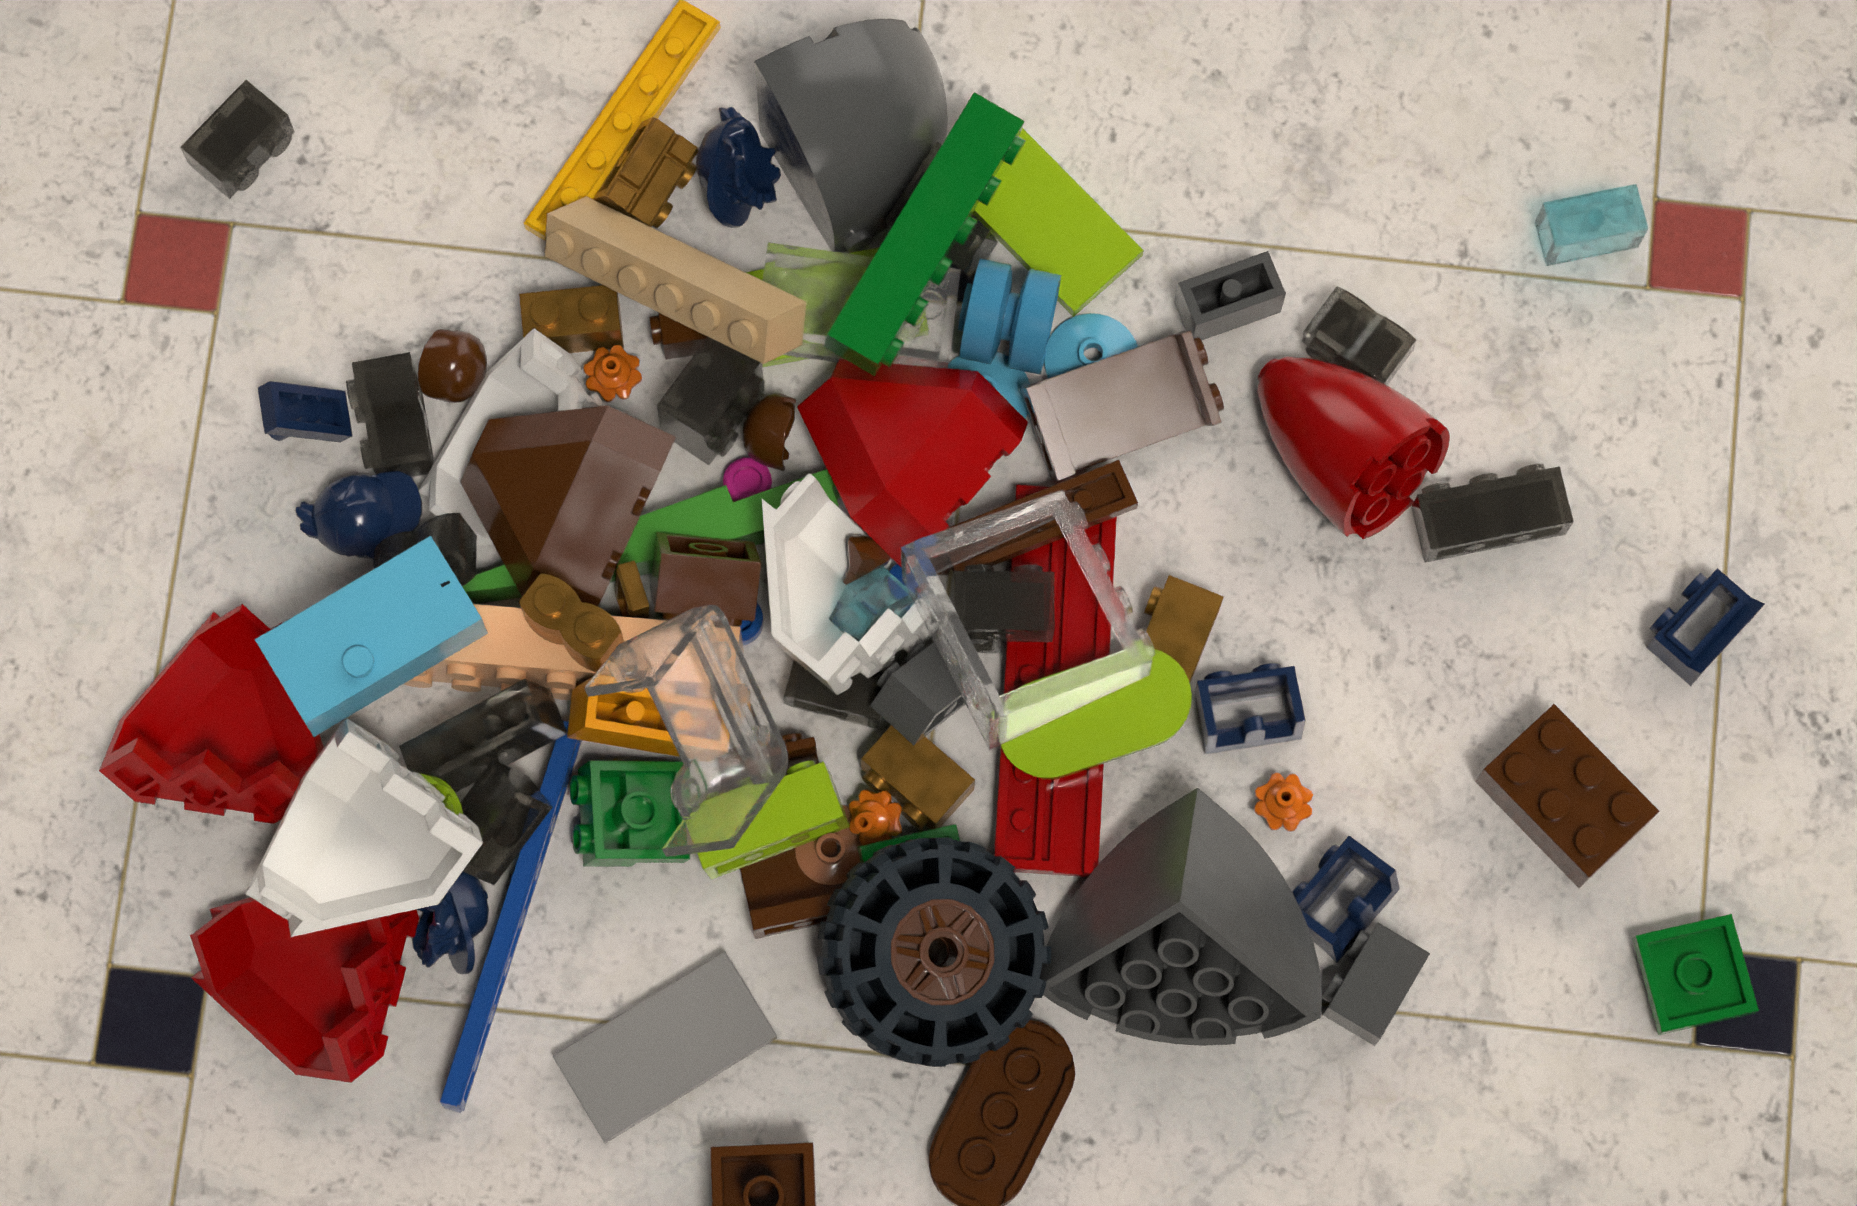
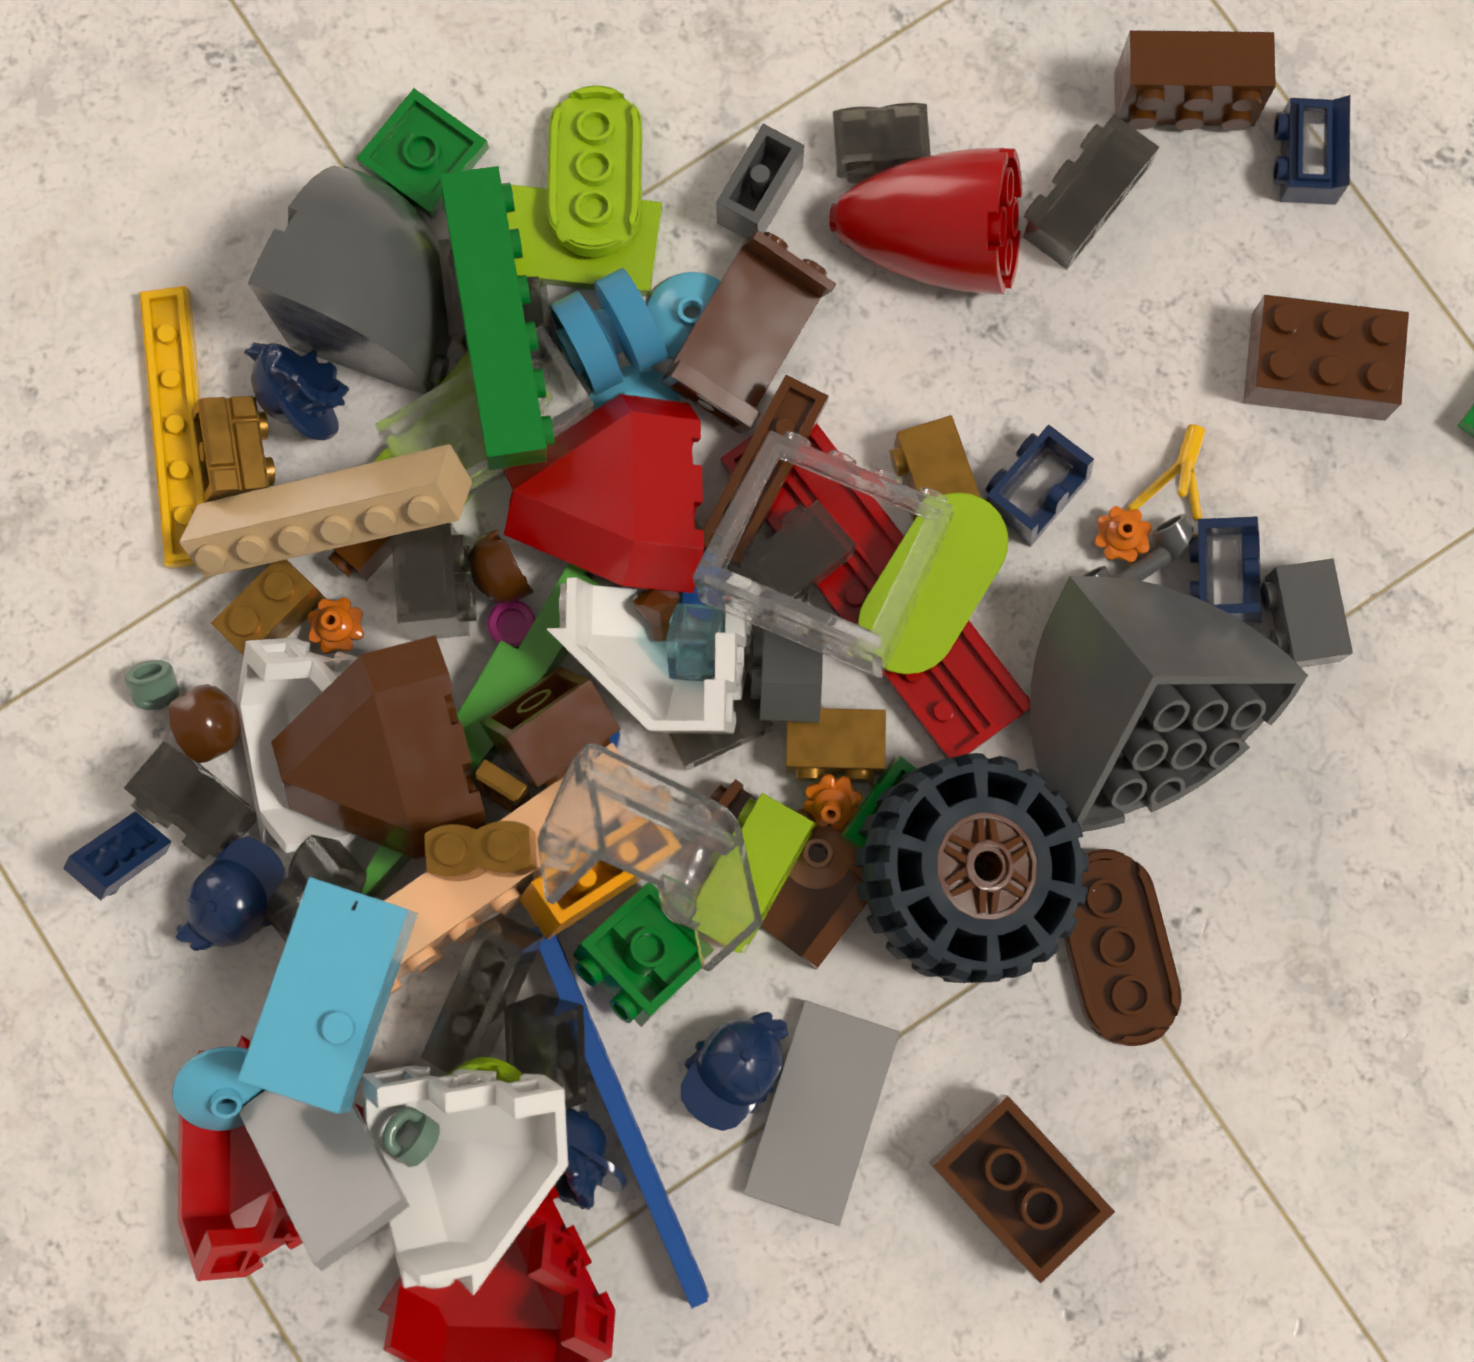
camera: 35 degrees left, 5 degrees up
(231, 631) = (209, 1089): none -> medium azure dish
(259, 762) = (324, 1173): none -> light grey tile
(343, 798) = (415, 1138): none -> sand green tile
(437, 305) = (152, 684): none -> sand green tile
(624, 957) = (733, 1070): none -> dark blue hair
(991, 58) = (419, 146): none -> green plate
(1110, 184) = (595, 171): none -> lime tile
(1317, 836) = (1172, 538): none -> dark grey bar
(1370, 790) = (1186, 466): none -> yellow plant
(1647, 490) = (1194, 78): none -> reddish brown brick

